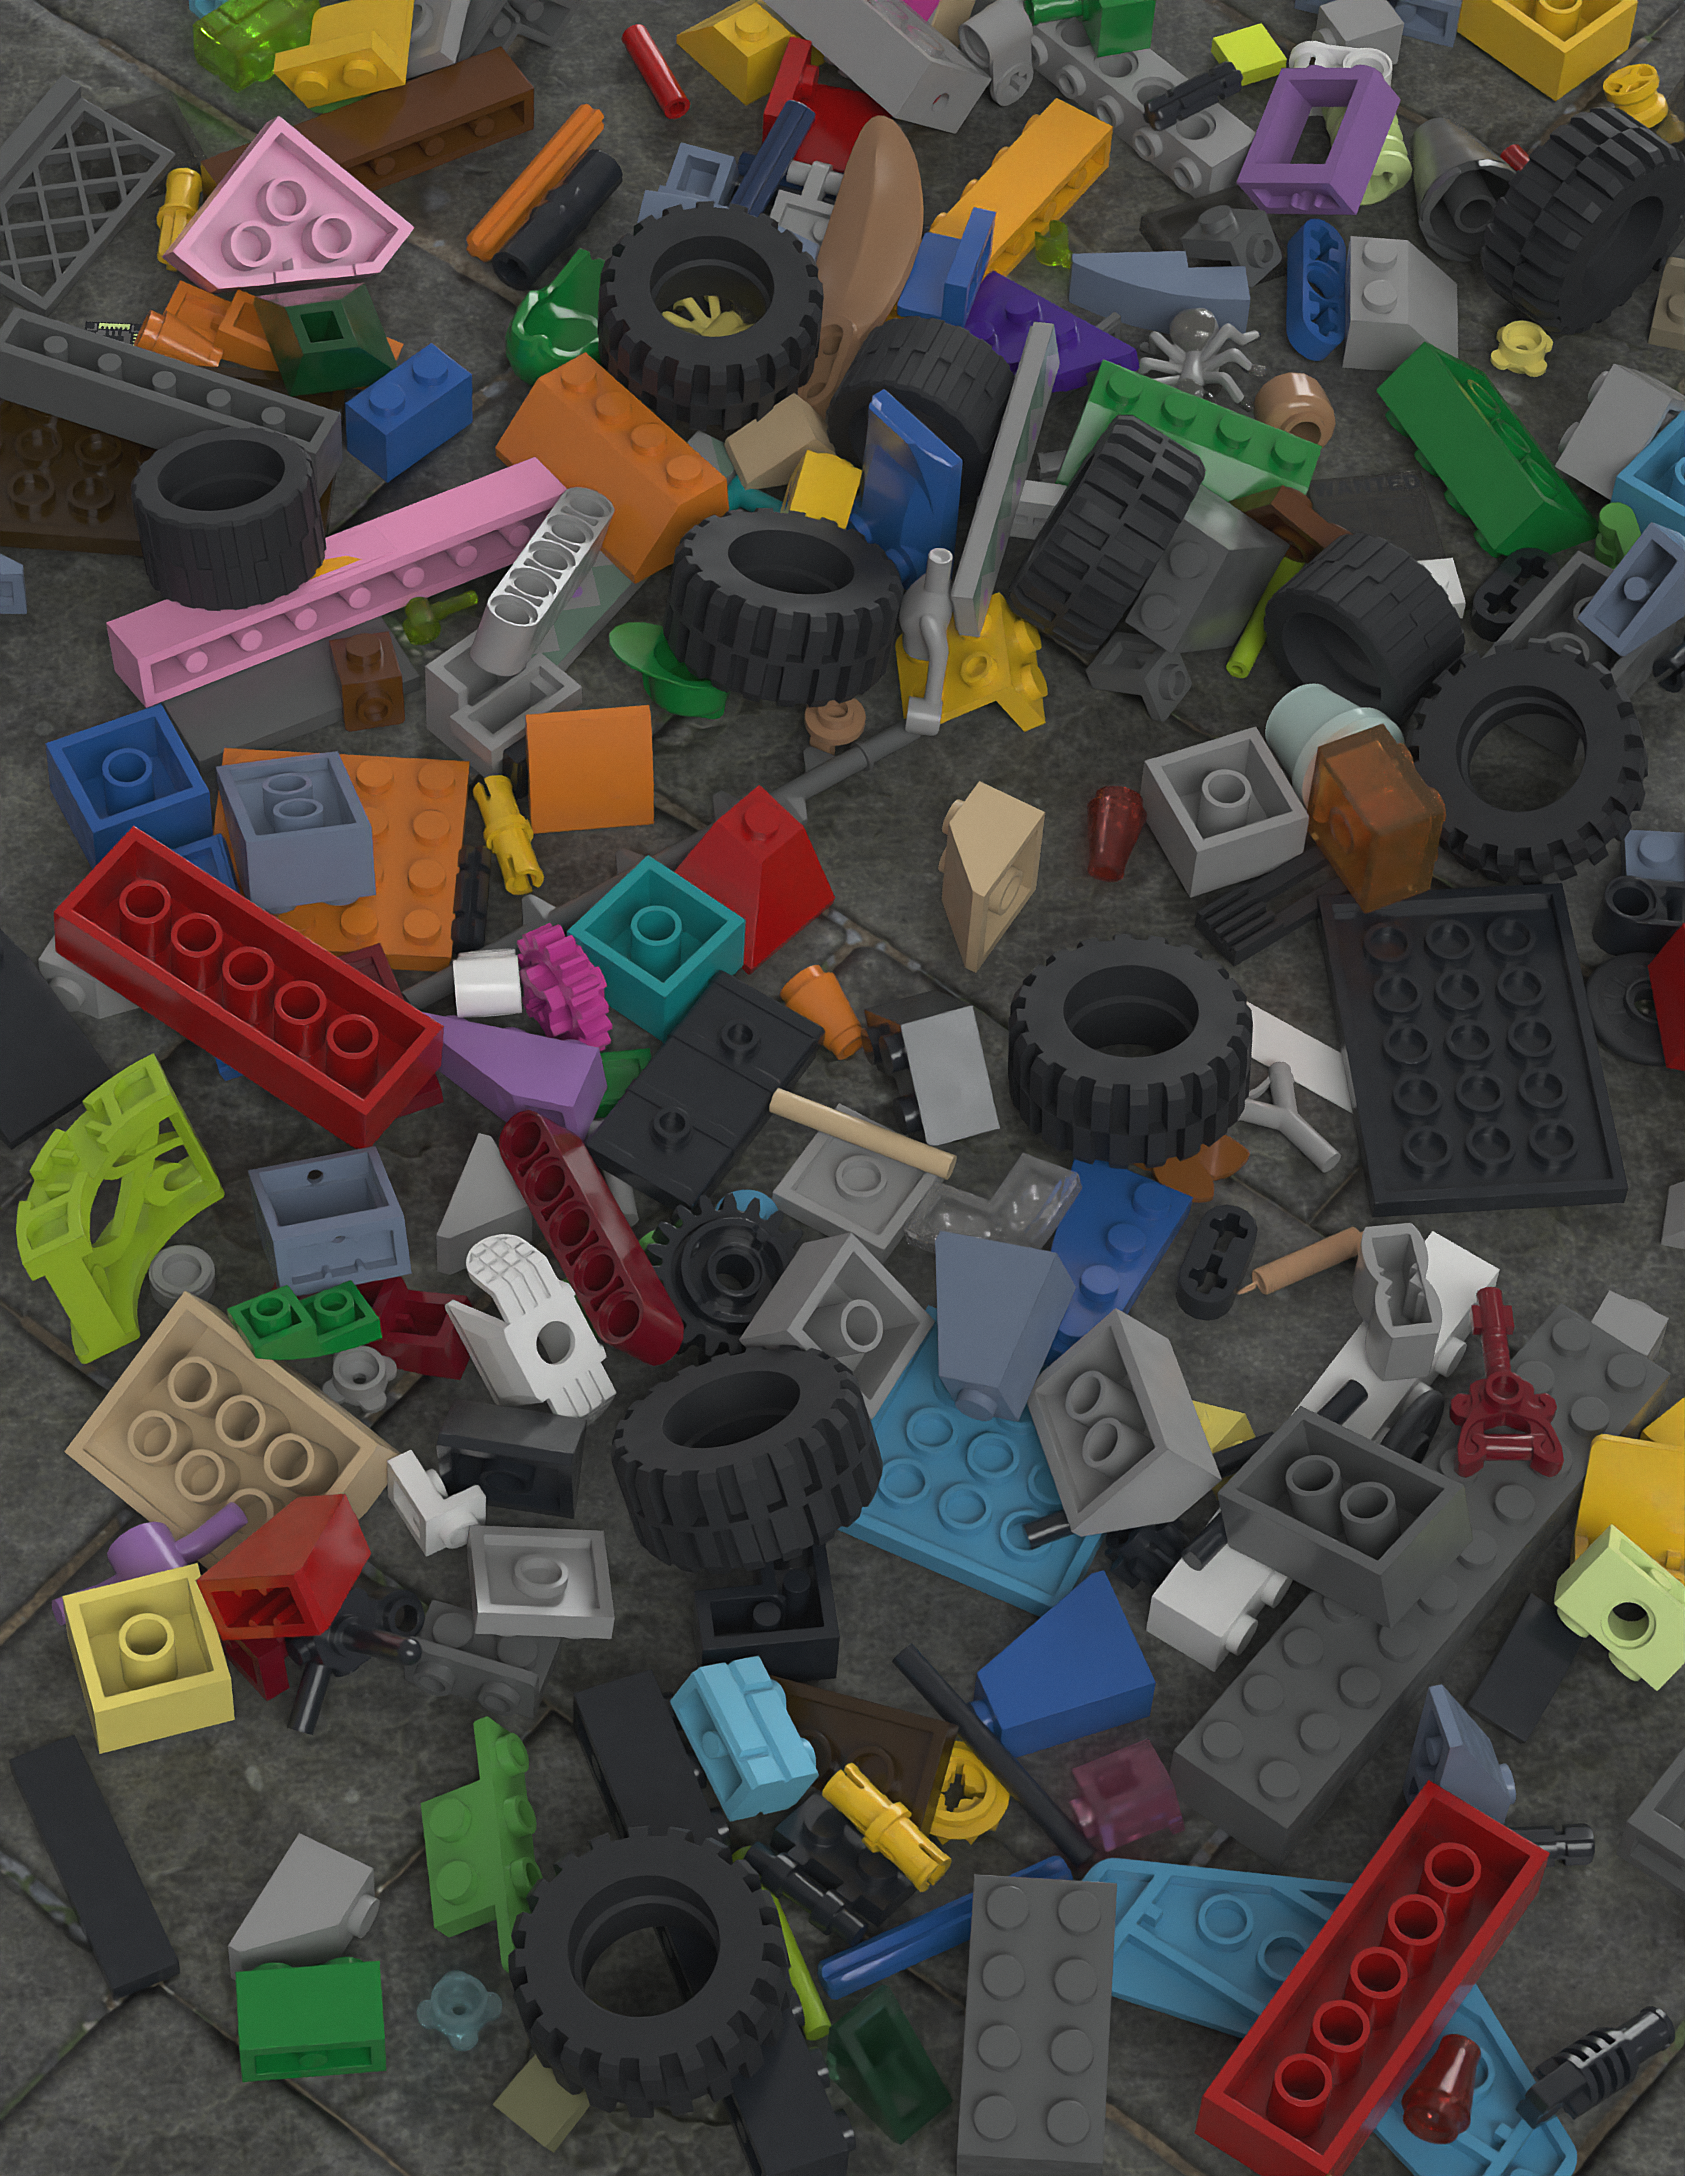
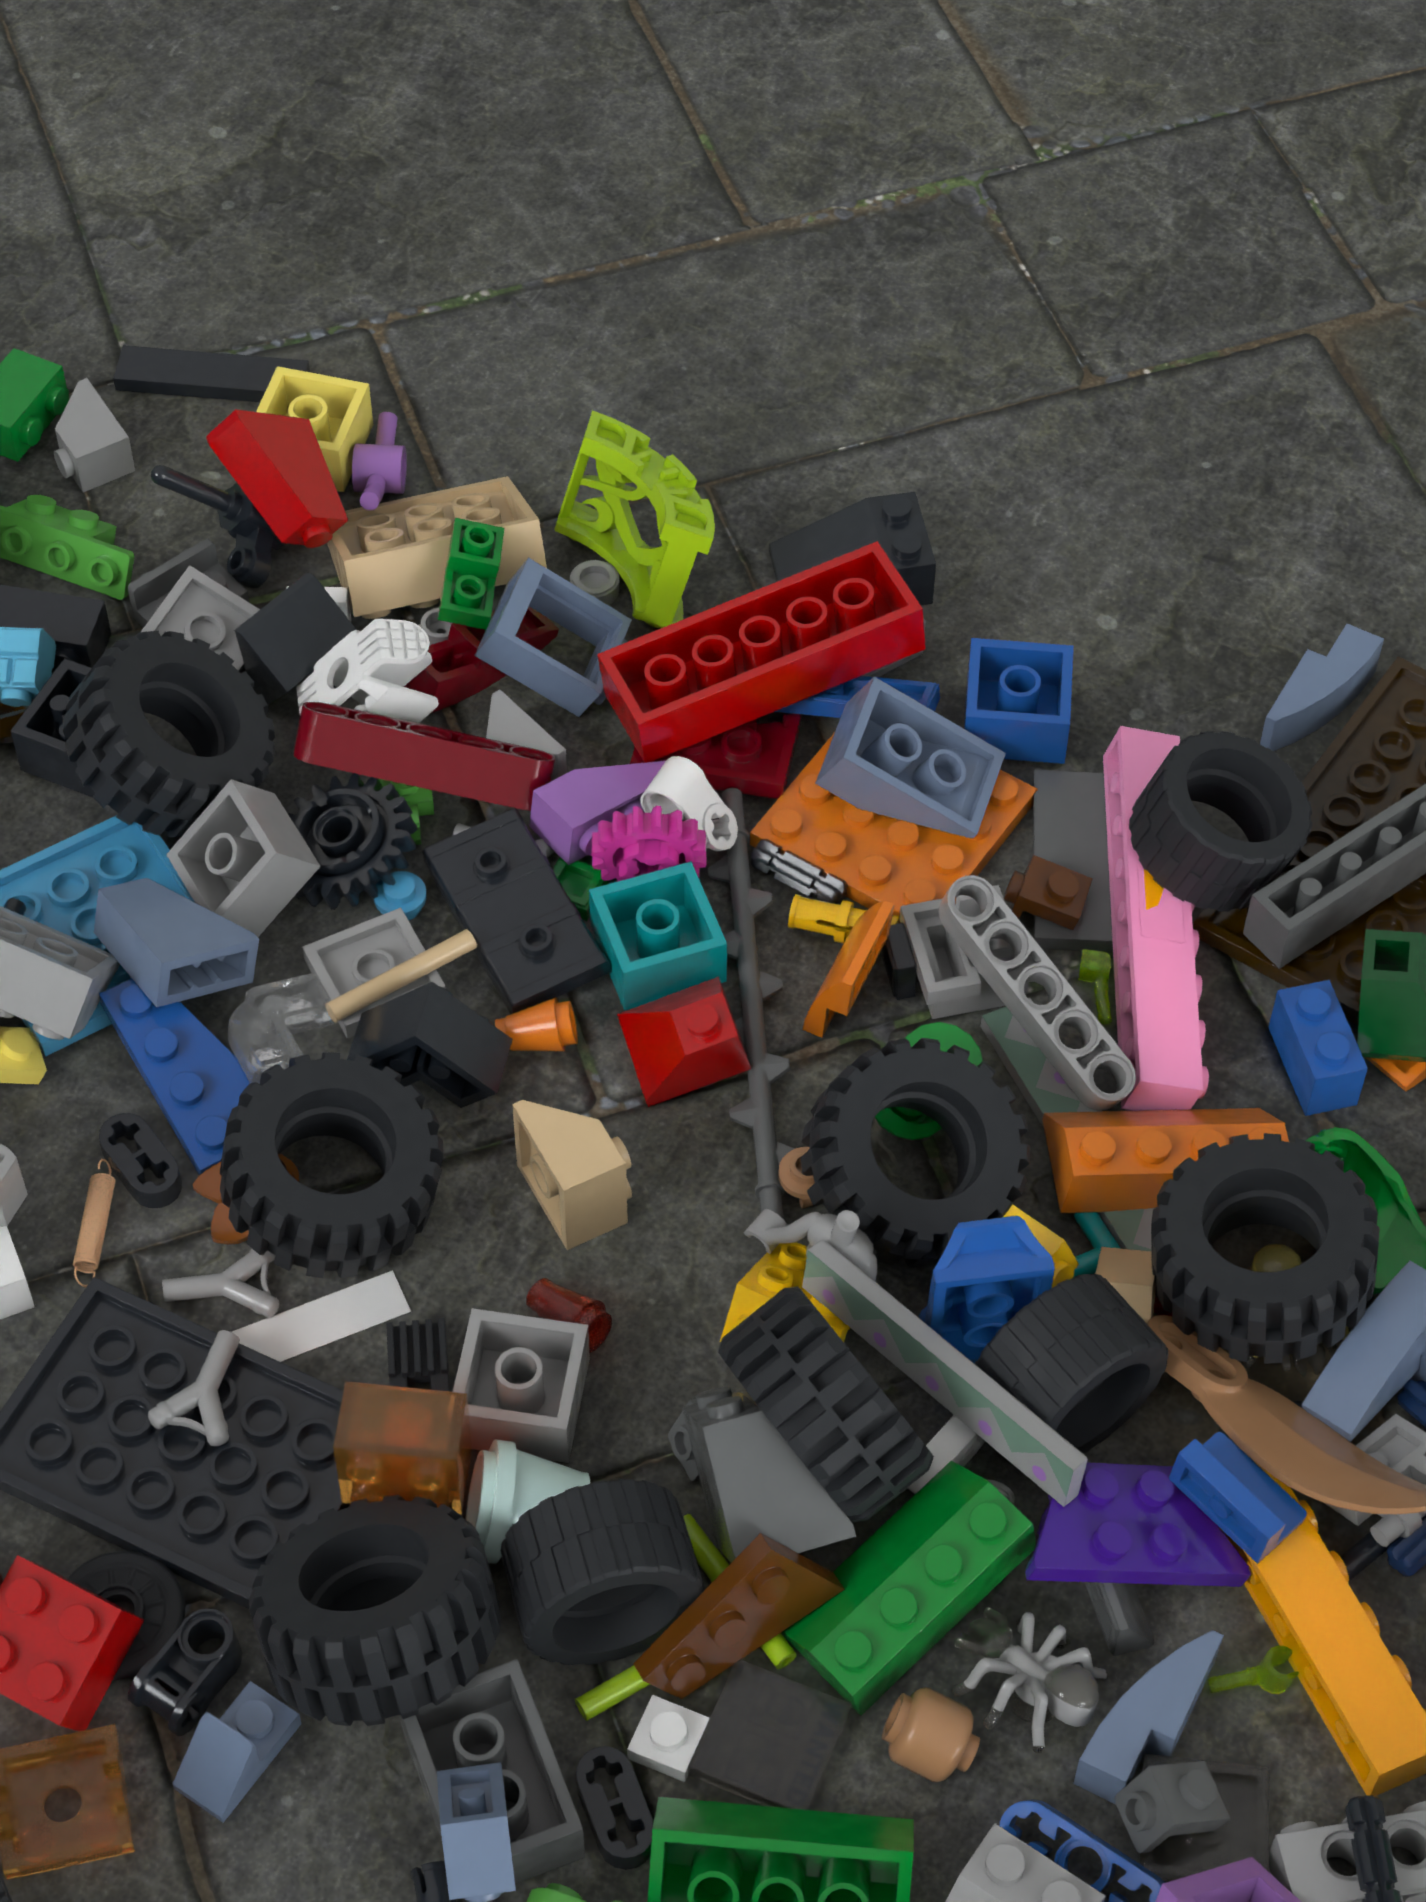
camera: 125 degrees right, 0 degrees up
(1422, 1037) = (202, 1394): none -> light grey piece

